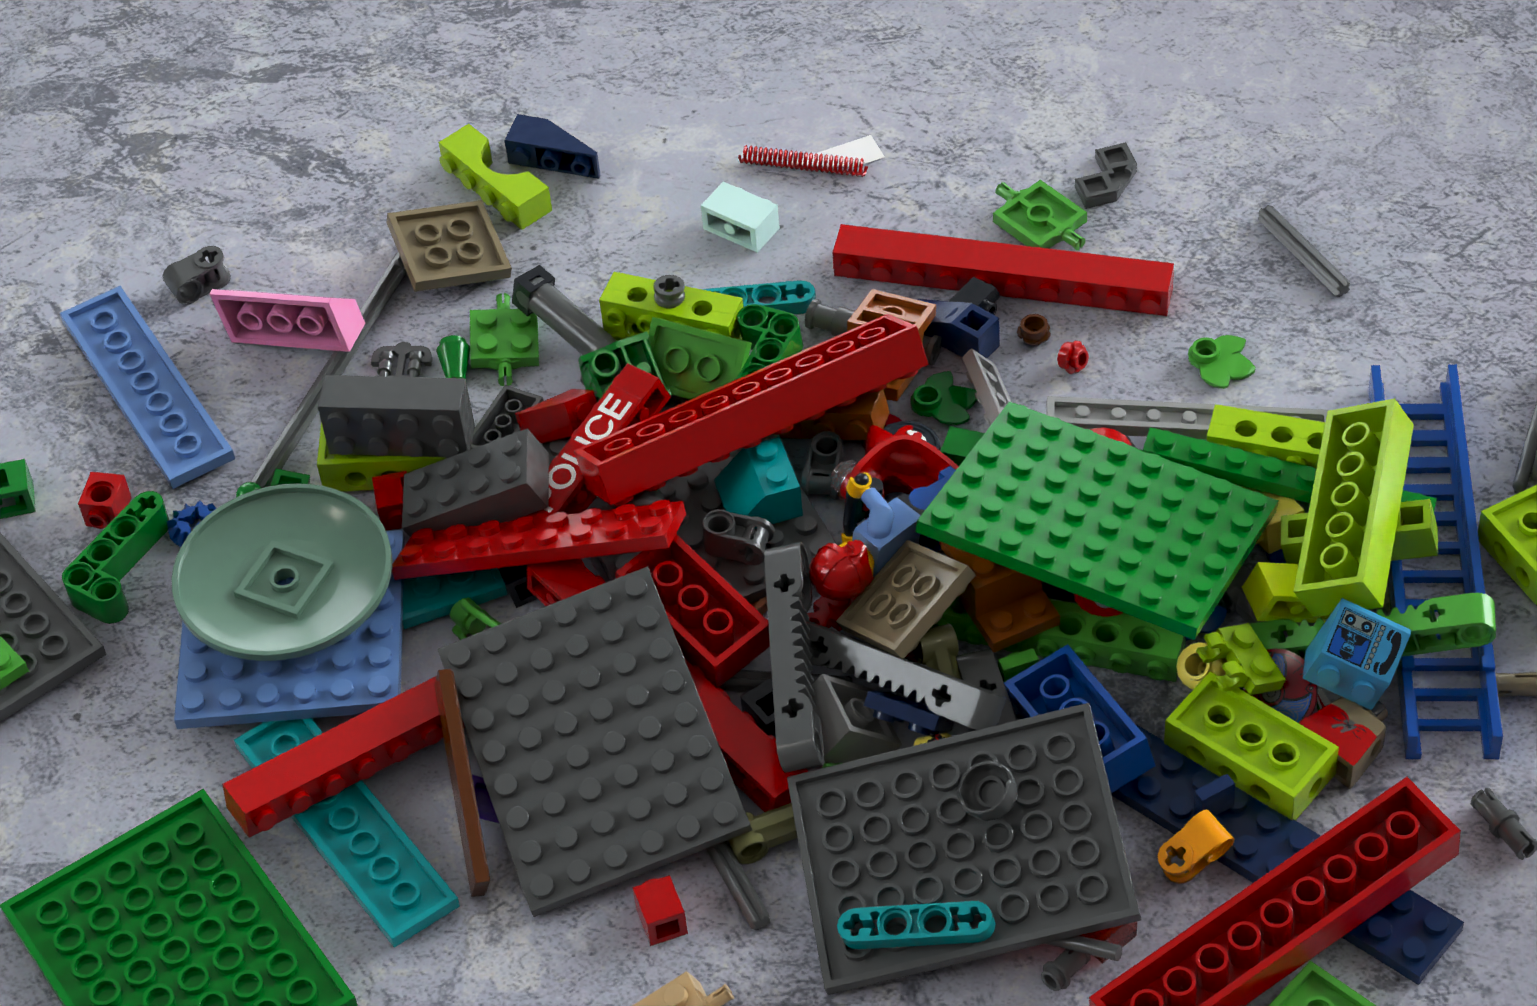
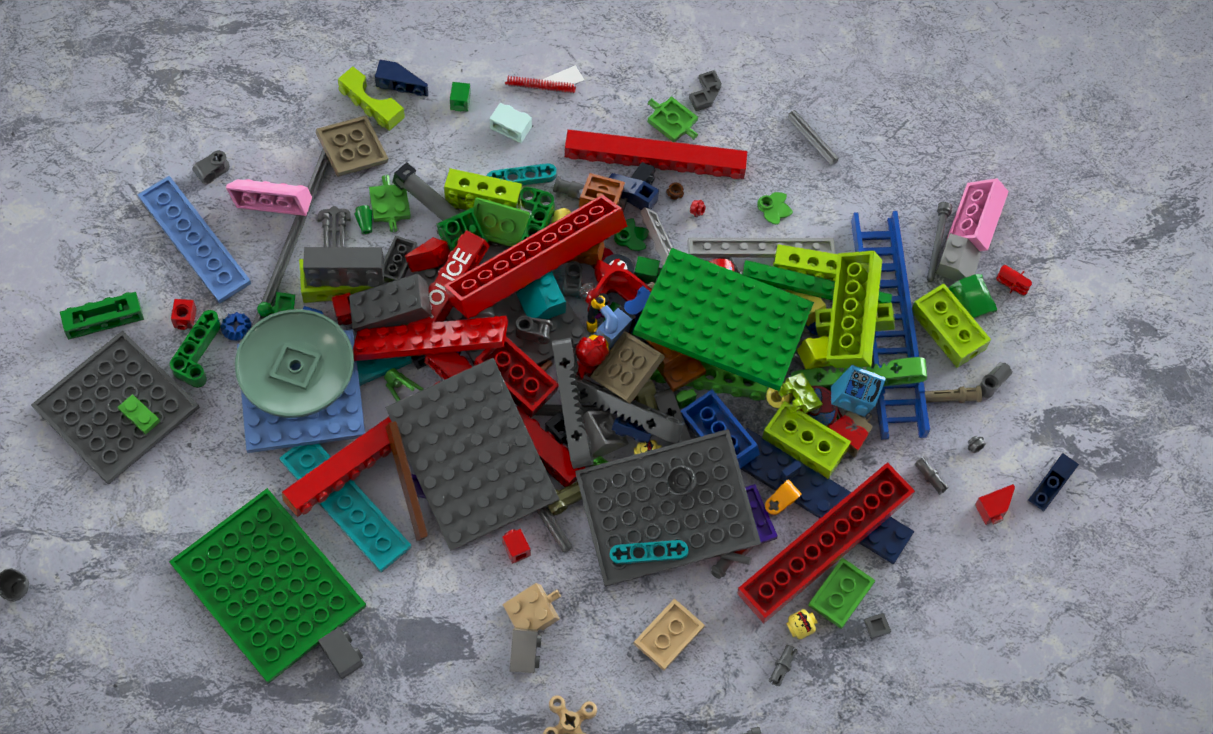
camera: 15 degrees left, 15 degrees up
(654, 175) = (460, 96): none -> green brick
(669, 299) = (477, 183): dark grey bush -> none
(1151, 887) = (762, 520): none -> dark purple plate

